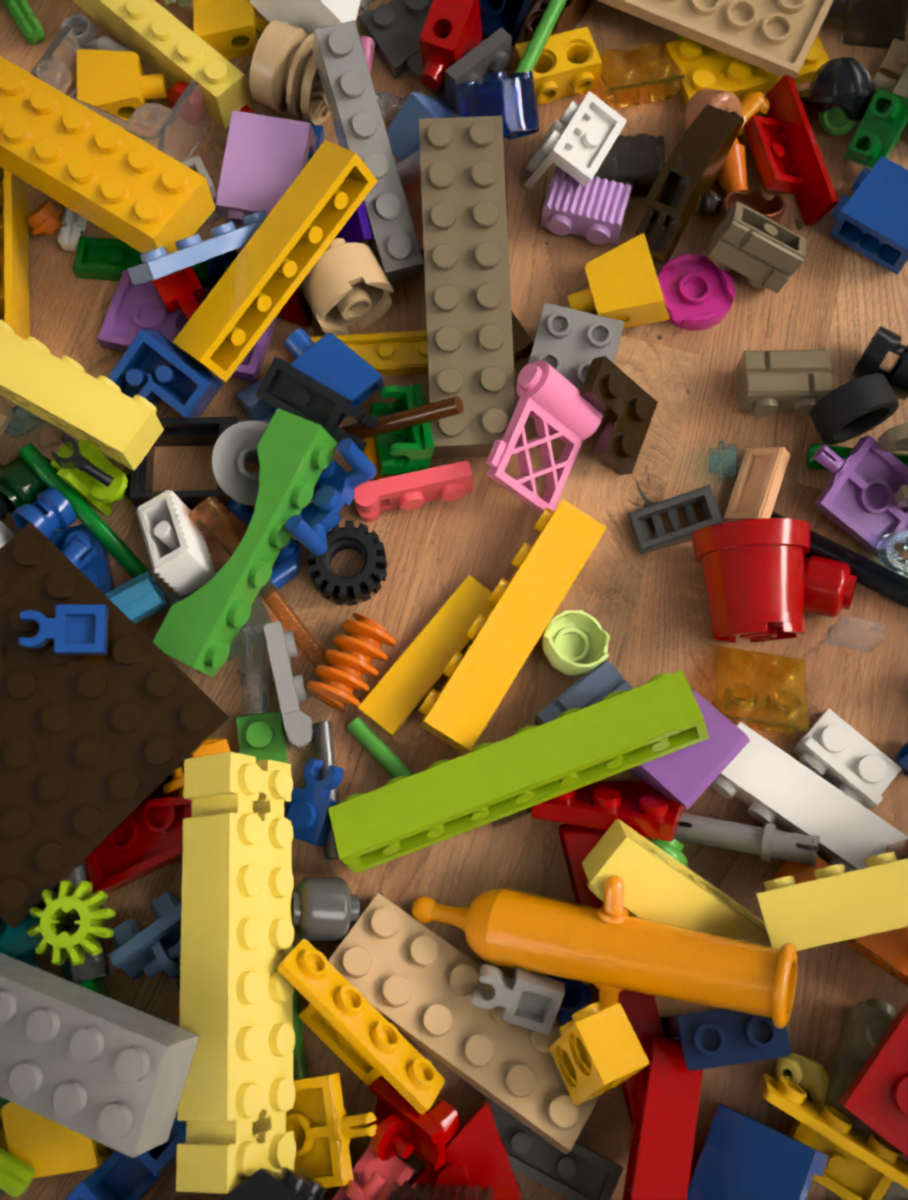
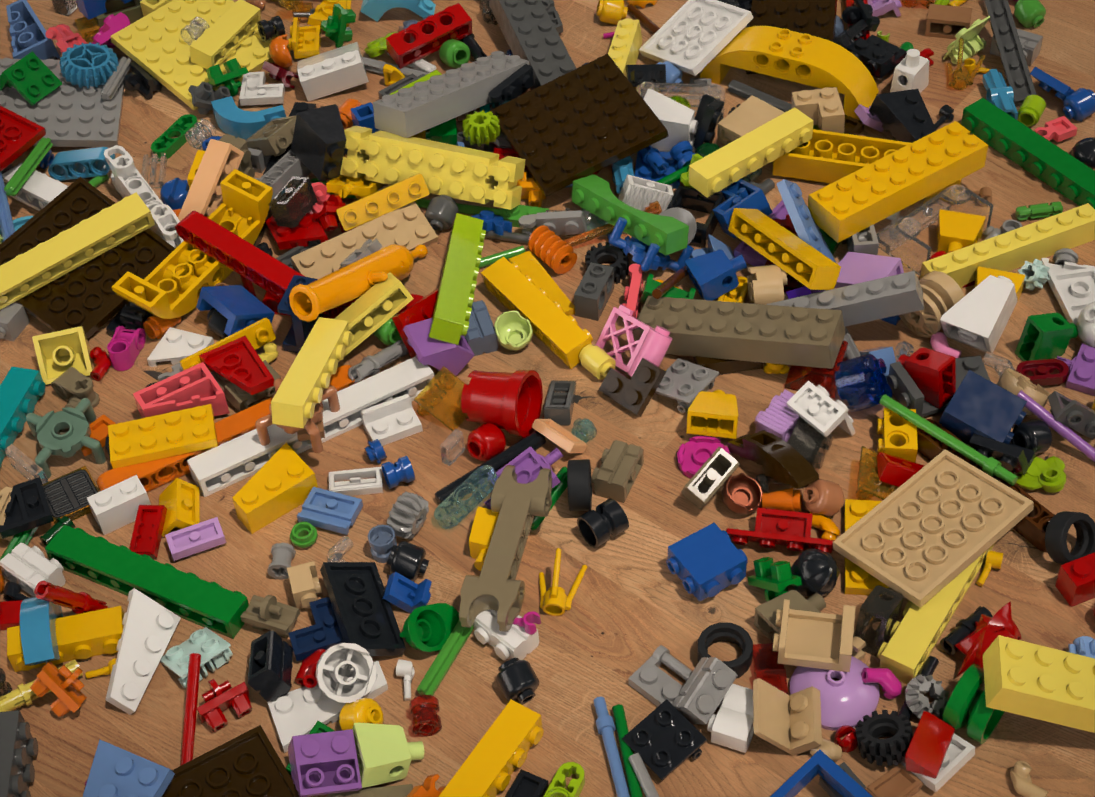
camera: 115 degrees right, 25 degrees down
(75, 629) = (603, 132): blue plate -> none
(81, 463) = (700, 153): black hand -> none
(309, 398) = (690, 253): black hinge -> none
(429, 551) = (594, 291): none -> dark grey brick
(584, 485) = (596, 361): none -> light yellow brick
(597, 1052) = (321, 258): yellow brick -> none
(621, 43) = (895, 469): none -> red slope

